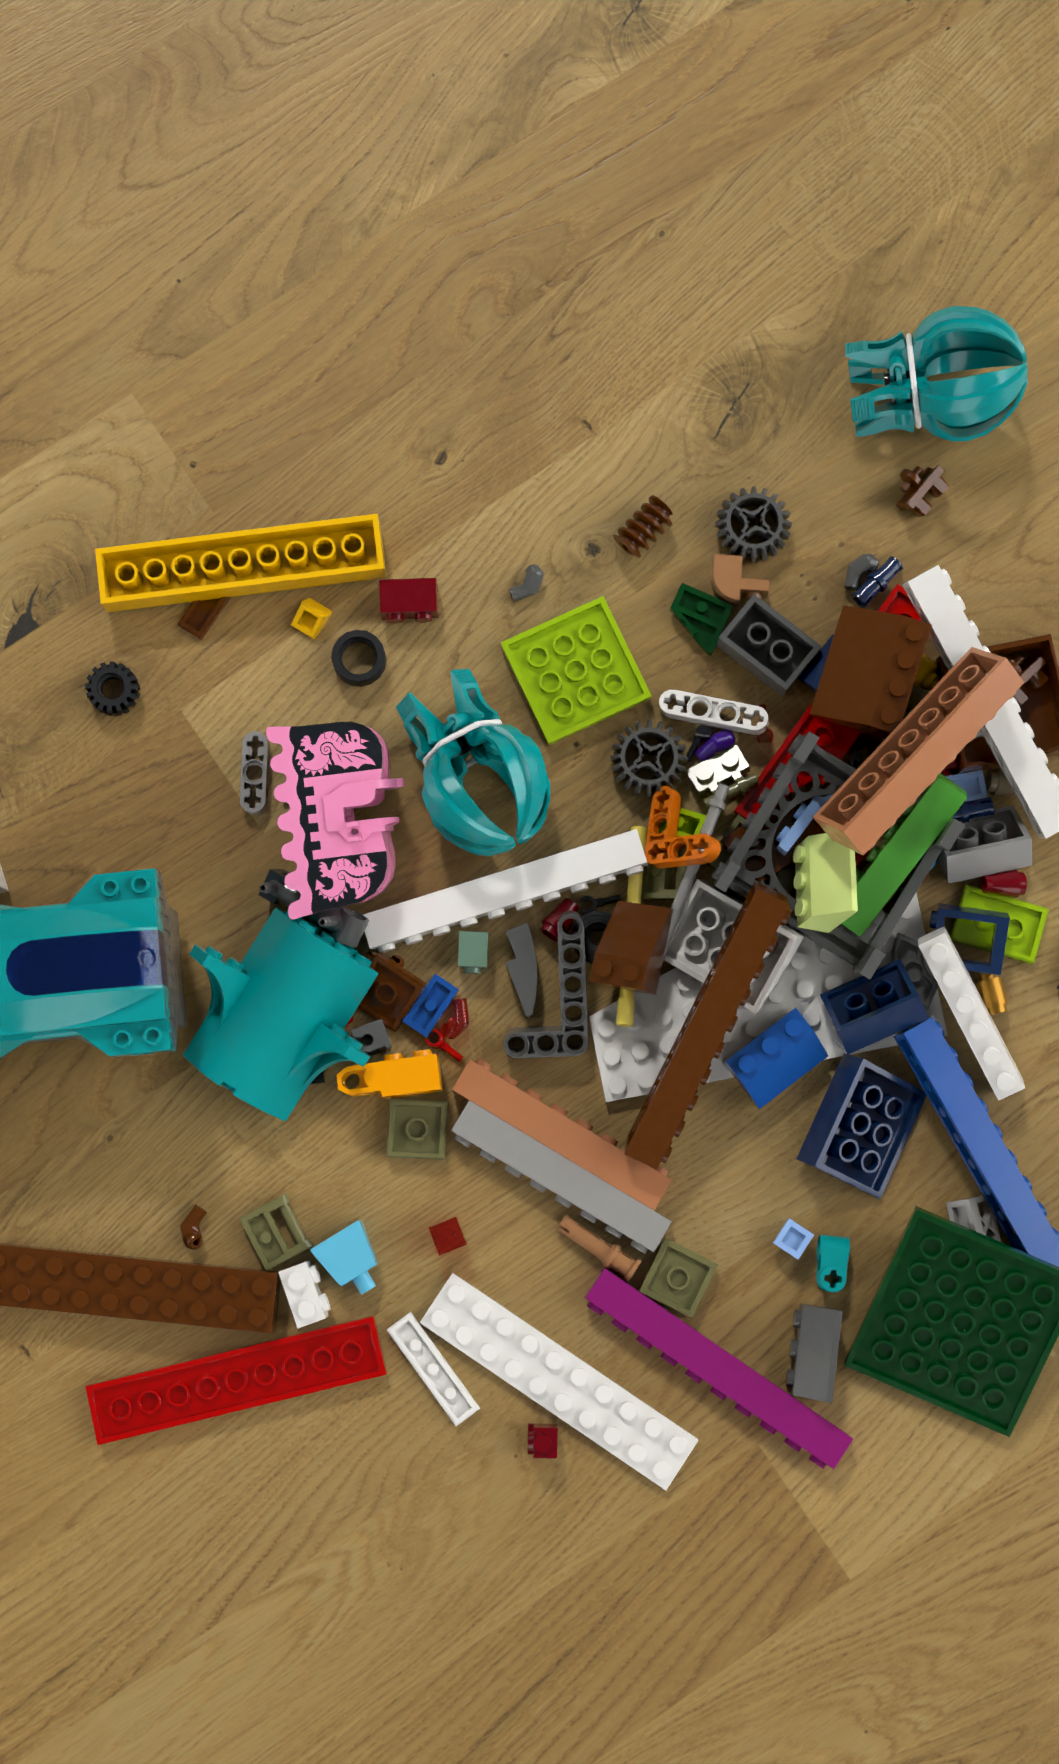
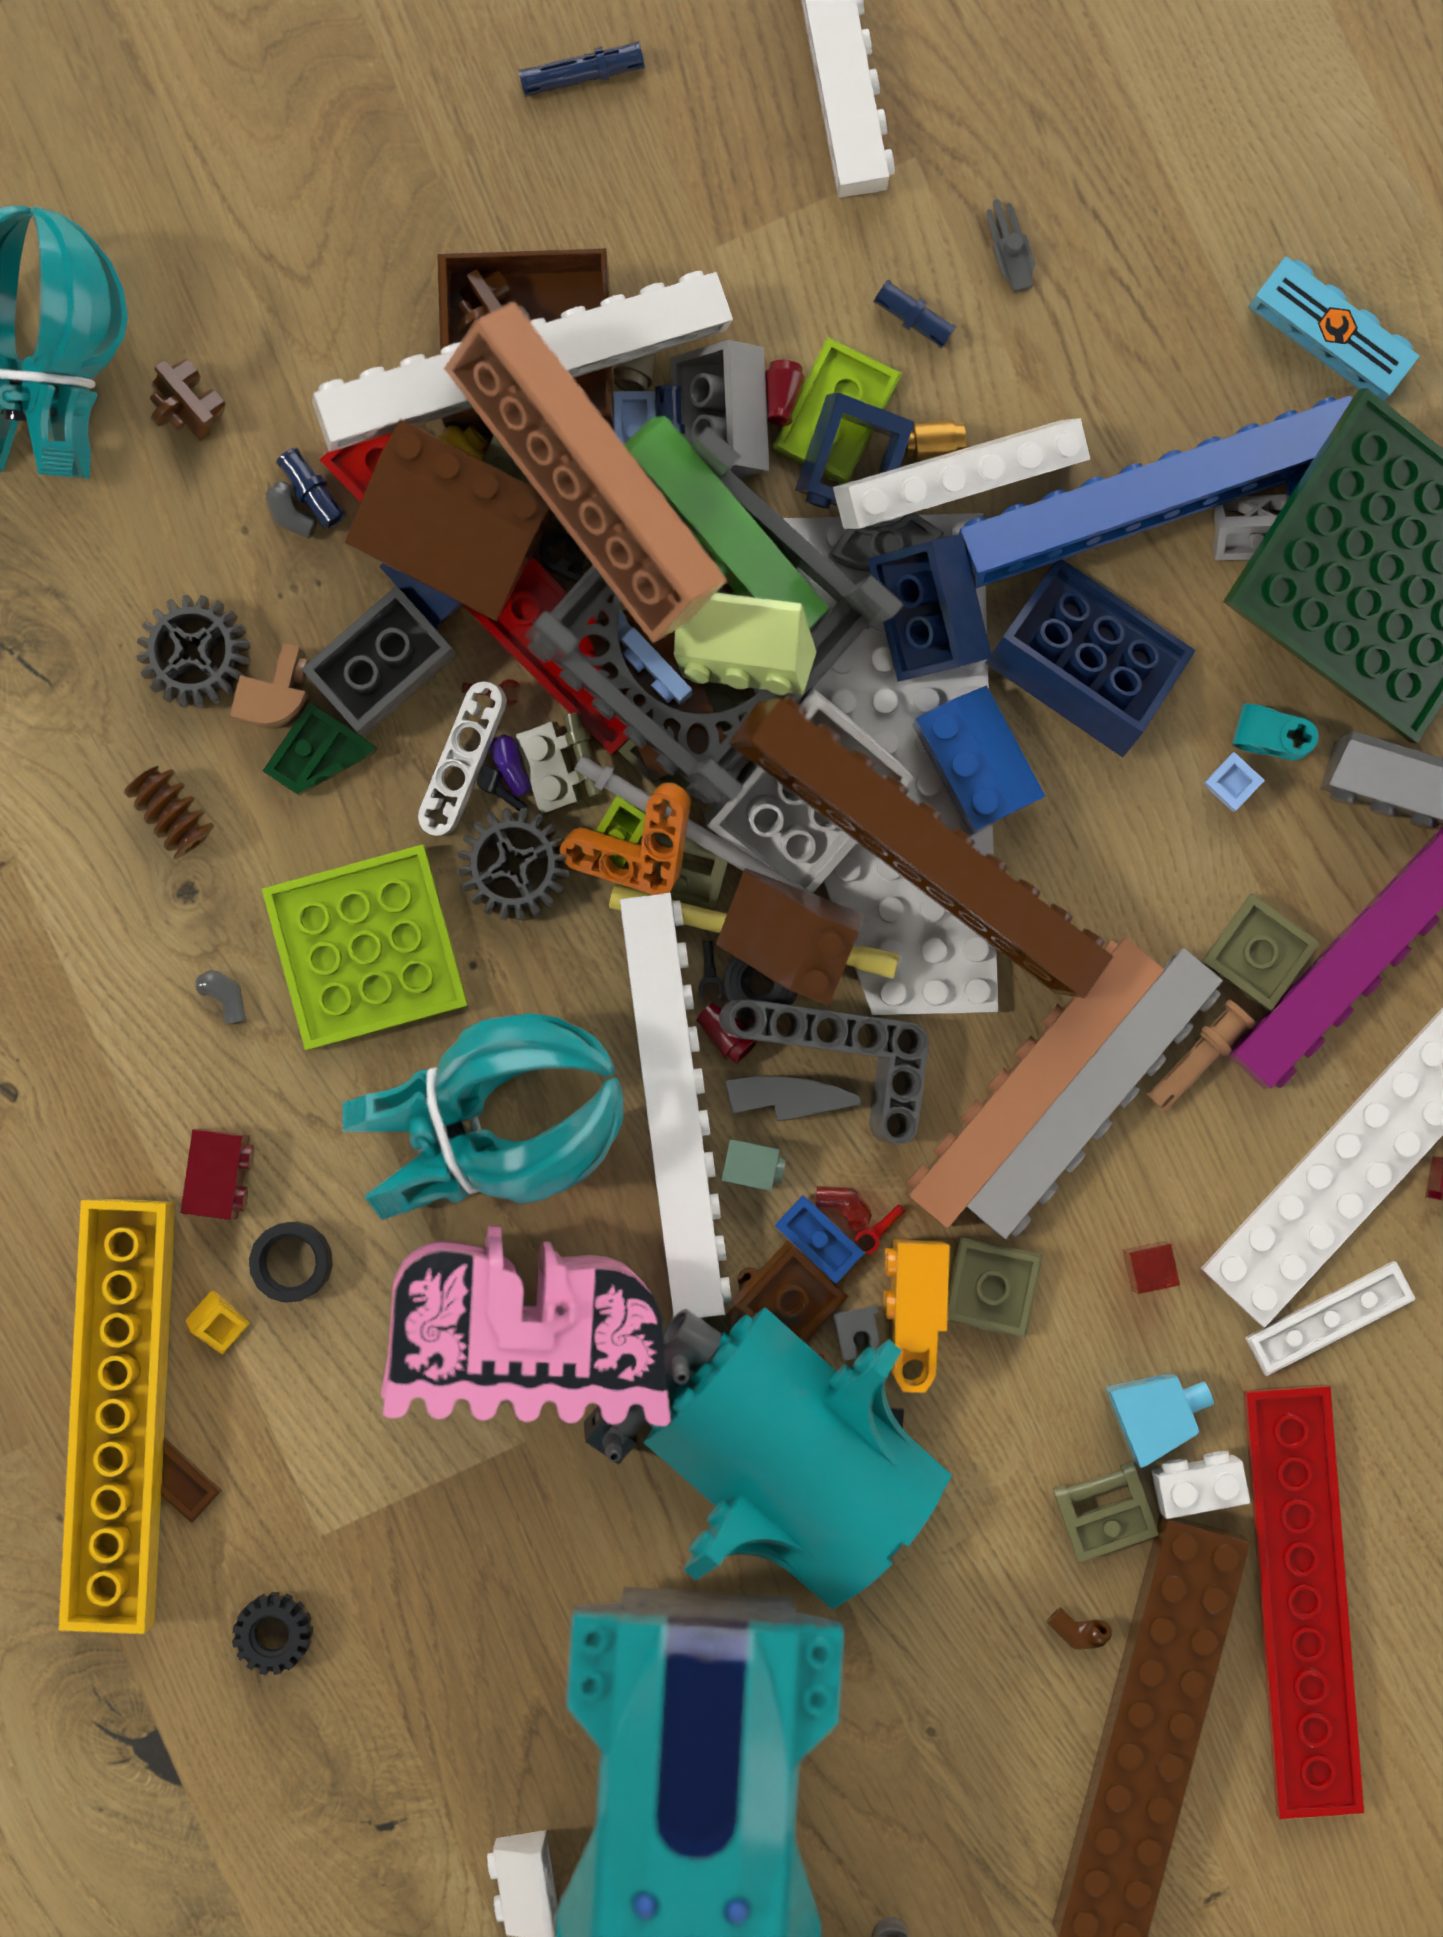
camera: 85 degrees left, 5 degrees up
(245, 765) = (463, 1457): light grey beam -> none

